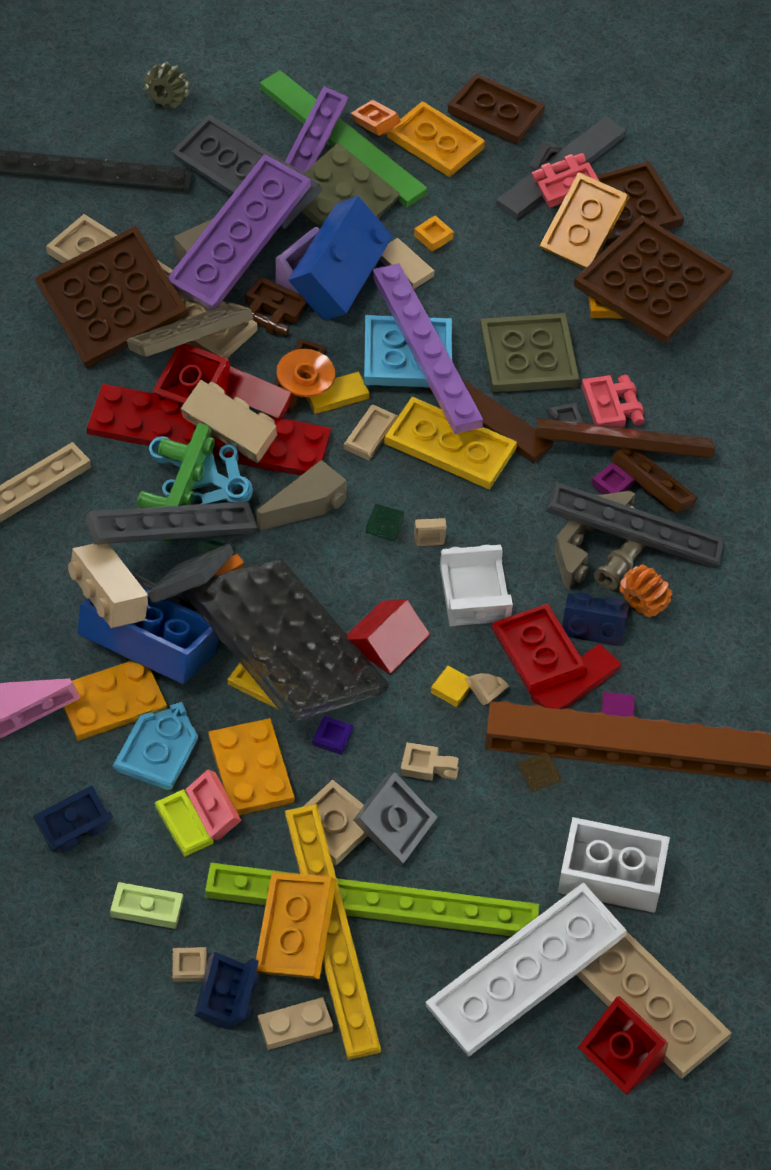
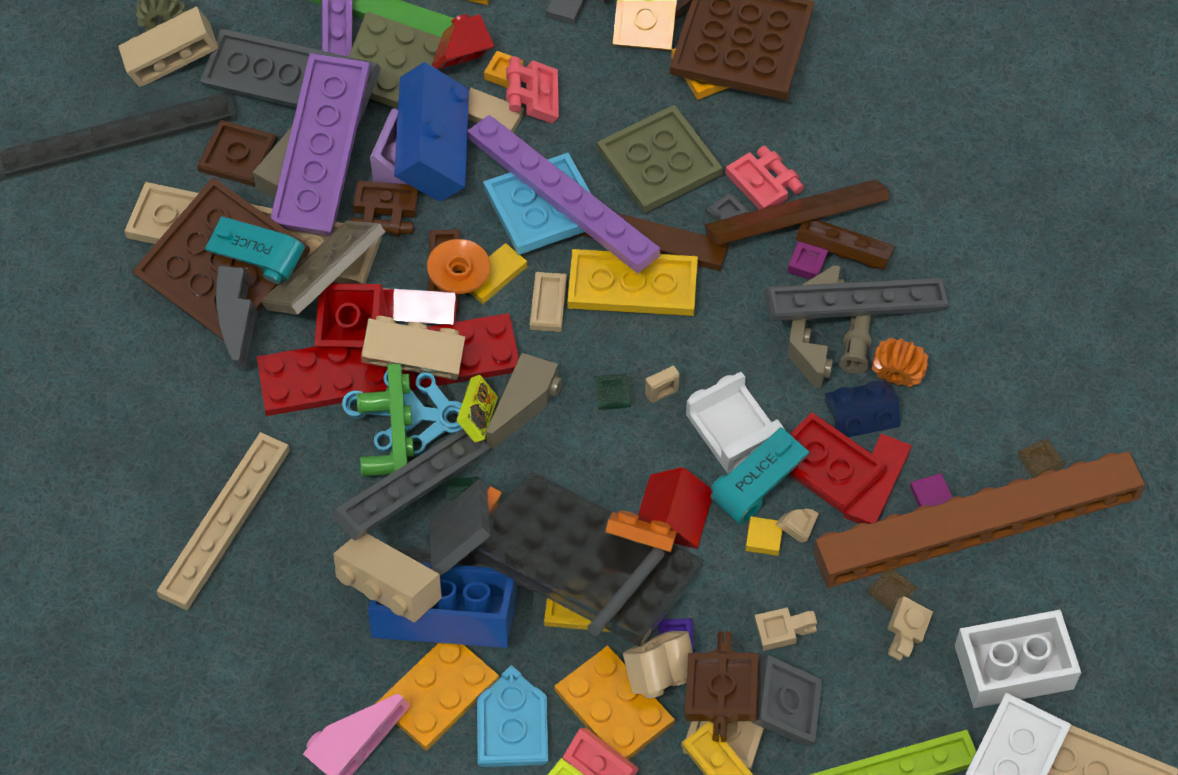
camera: 20 degrees left, 5 degrees up
(99, 340) = (235, 312): none -> dark grey slope
(148, 297) = (269, 250): none -> teal door
(158, 113) = (168, 47): none -> tan brick
(170, 217) = (236, 152): none -> reddish brown tile
(259, 489) = (477, 408): none -> neon yellow tile
(299, 673) = (625, 591): none -> dark grey bar
(302, 745) = (658, 663): none -> tan brick
(342, 781) = (722, 686): none -> reddish brown plate
(352, 642) = (653, 534): none -> orange plate
(408, 197) = (462, 42): none -> red slope
(451, 638) = (745, 486): none -> teal door
(456, 261) = (540, 90): none -> coral plate
(536, 804) = (909, 625): none -> tan plate
(731, 716) = (1040, 458): none -> clear orange tile

